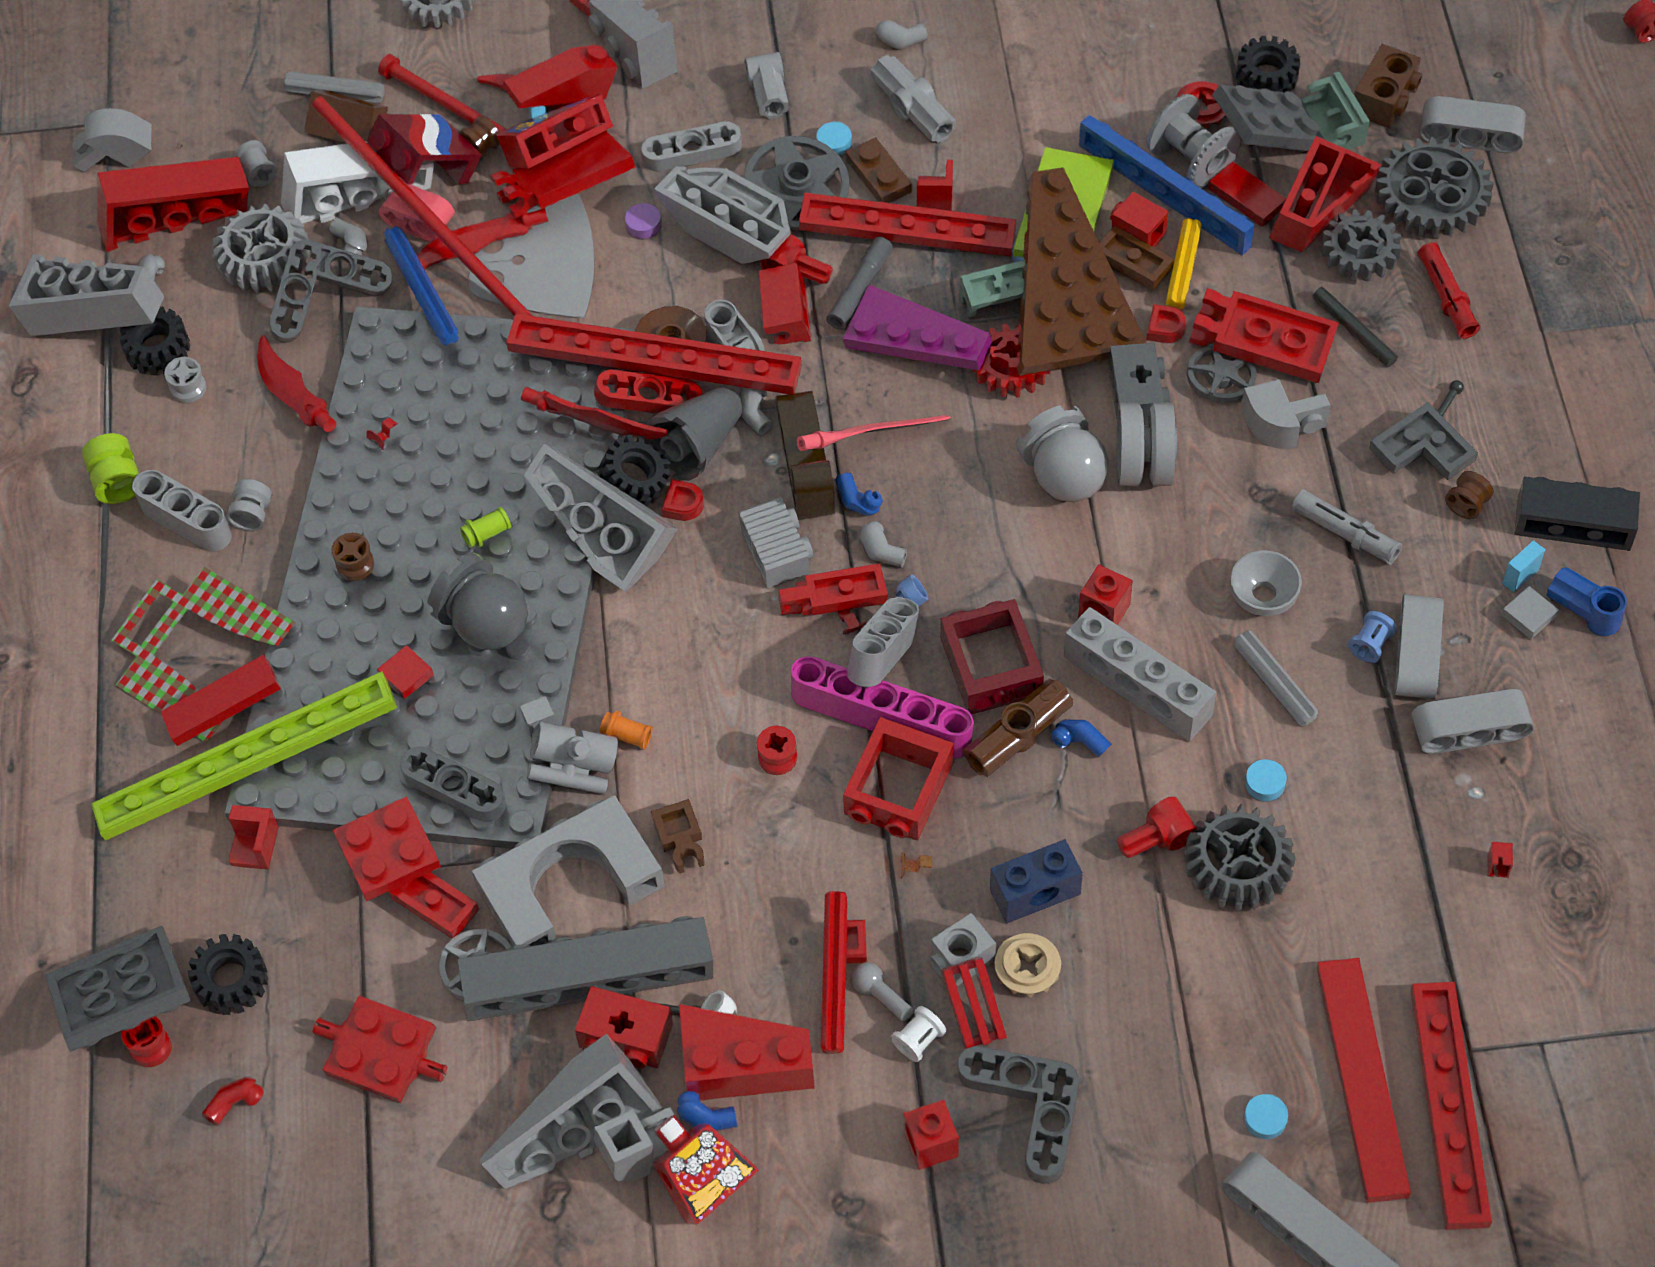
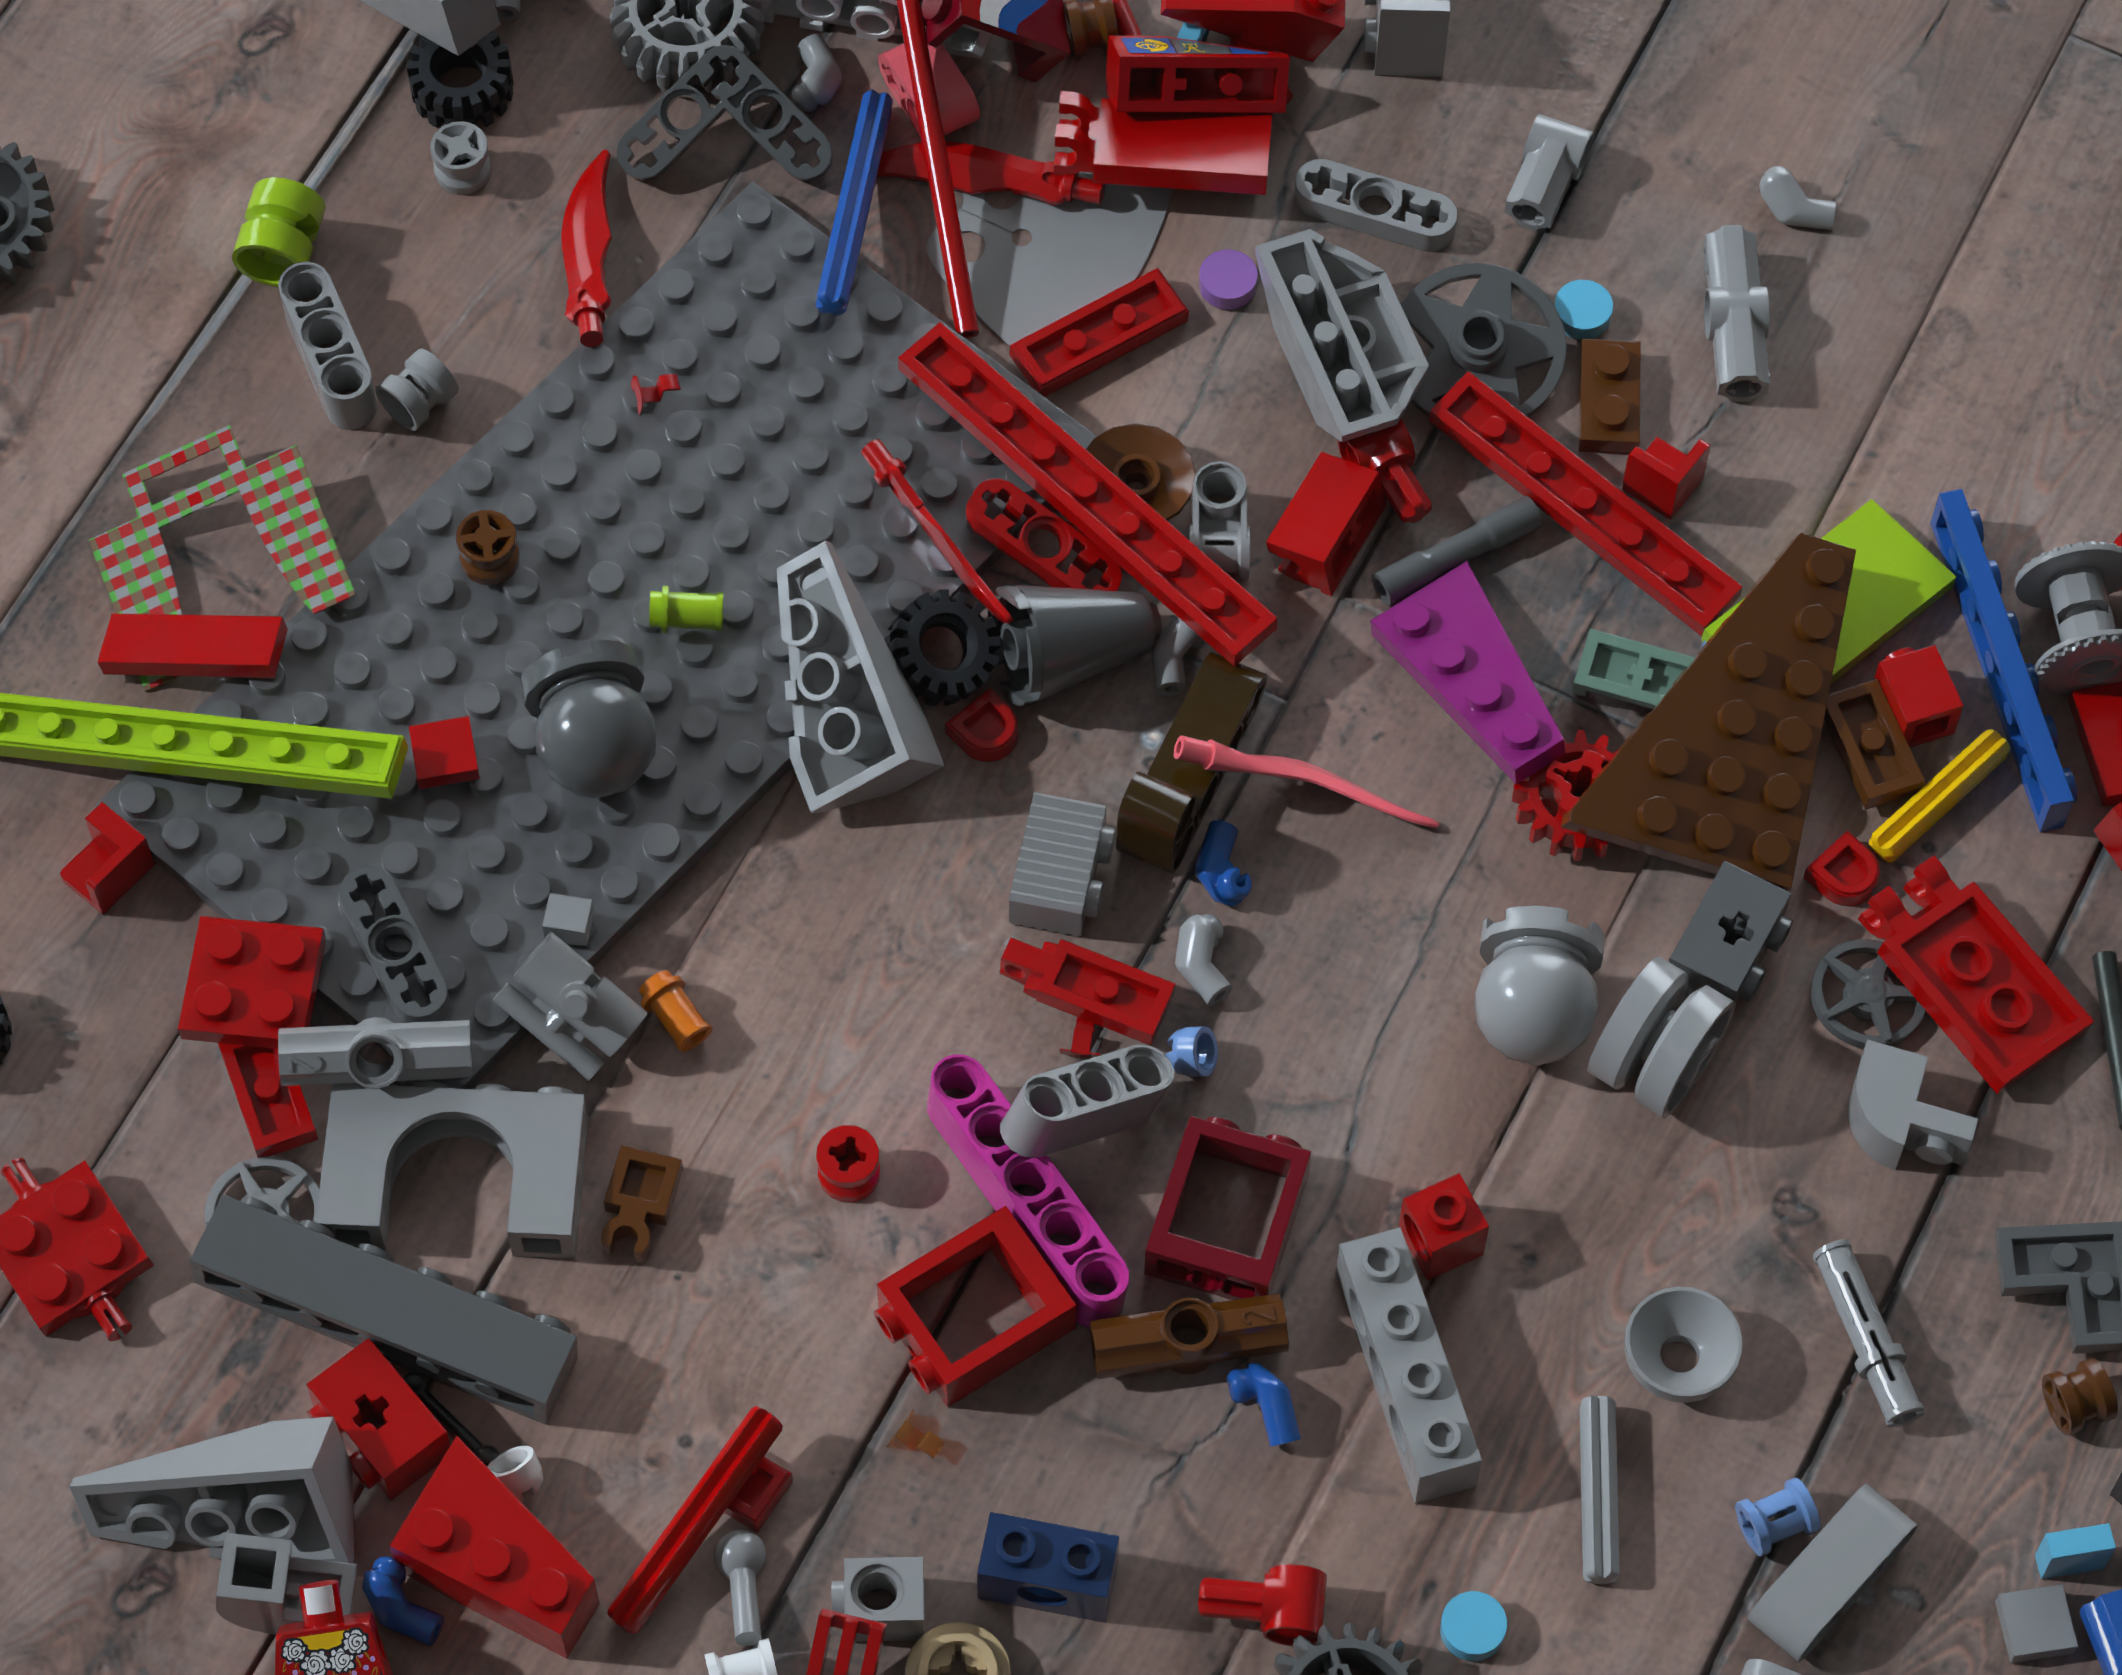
camera: 30 degrees right, 5 degrees up
(464, 851) = (333, 1057): none -> light grey piece
(596, 280) = (1099, 333): none -> red tile

